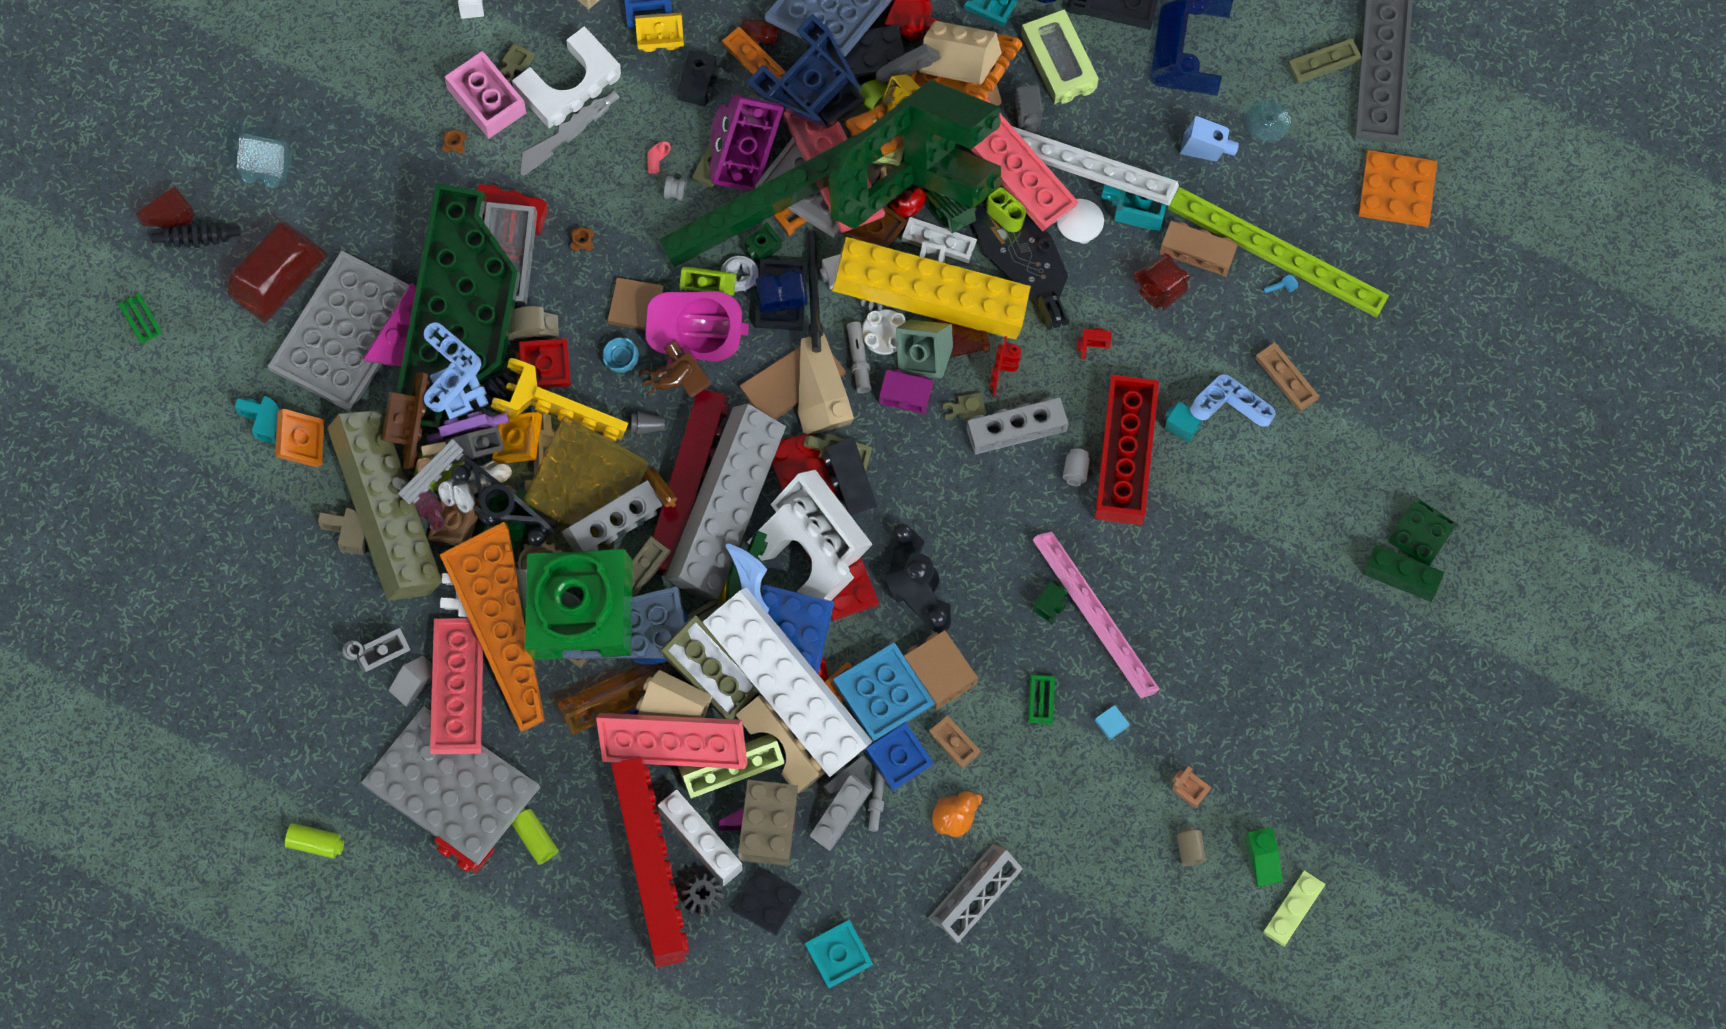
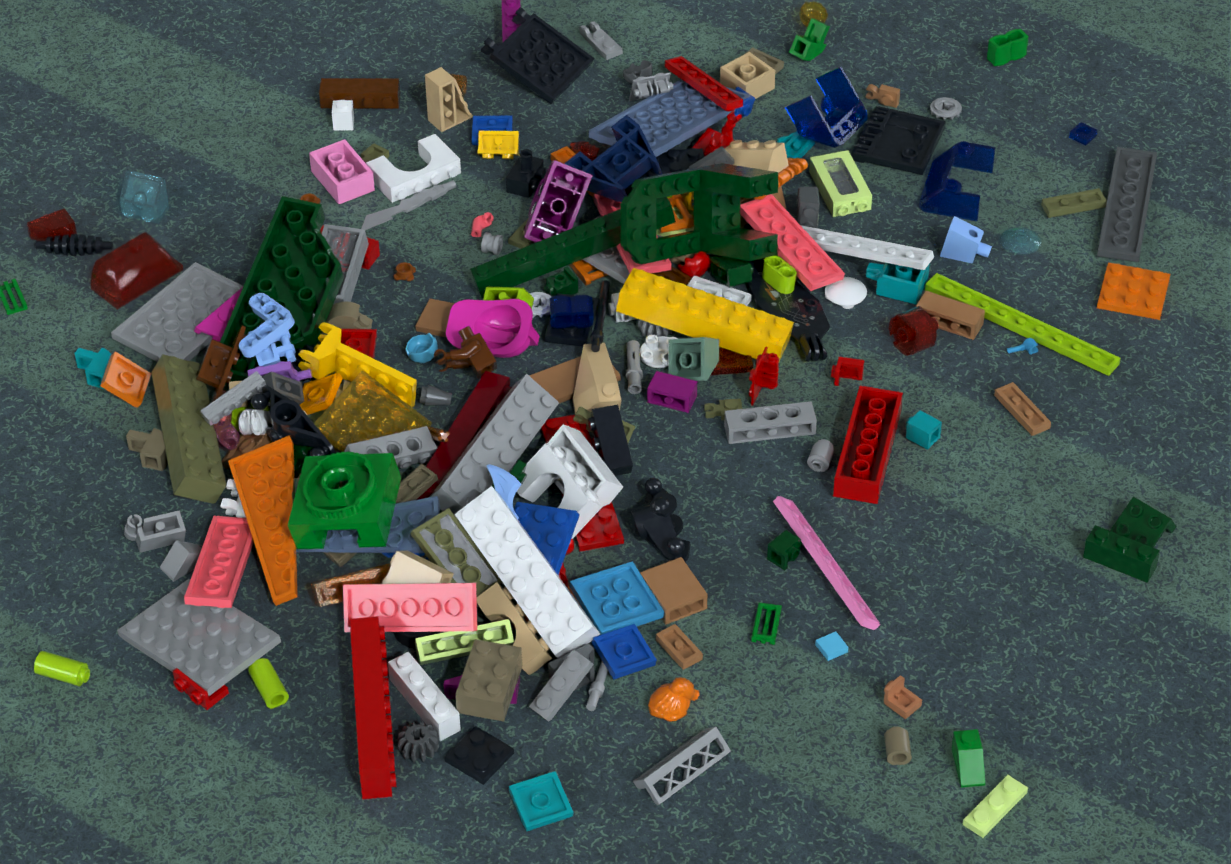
camera: 10 degrees right, 25 degrees down
(1223, 389) = (963, 411): light blue beam -> none

